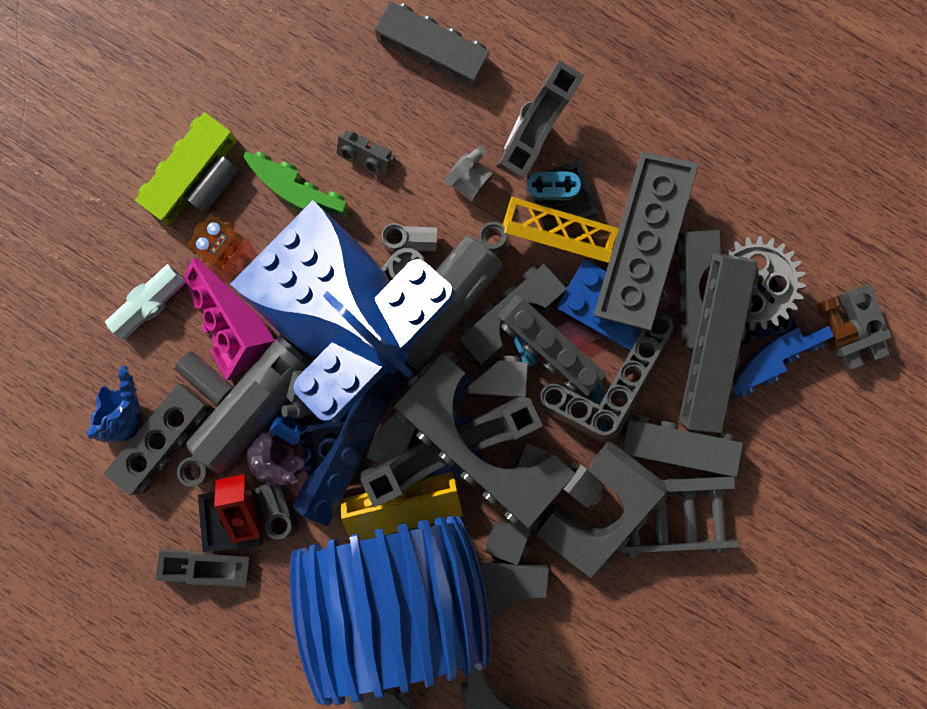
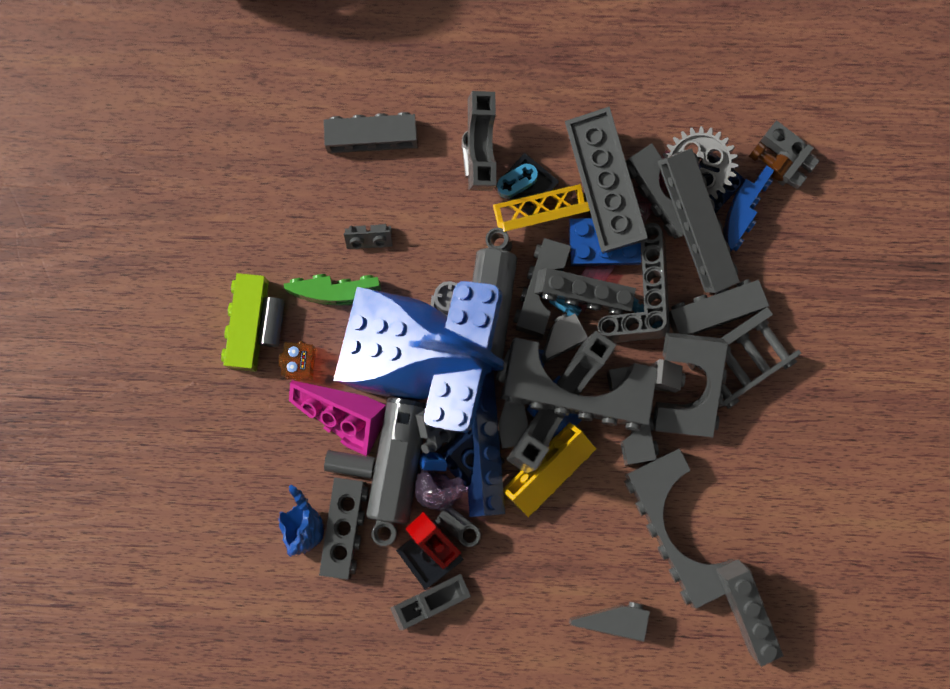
camera: 30 degrees left, 5 degrees down
(145, 302) = (273, 435): light aqua piece -> none
(389, 611) = (587, 534): blue wheel -> none
(418, 238) = (442, 273): light grey piece -> none
(469, 175) = (453, 208): light grey piece -> none

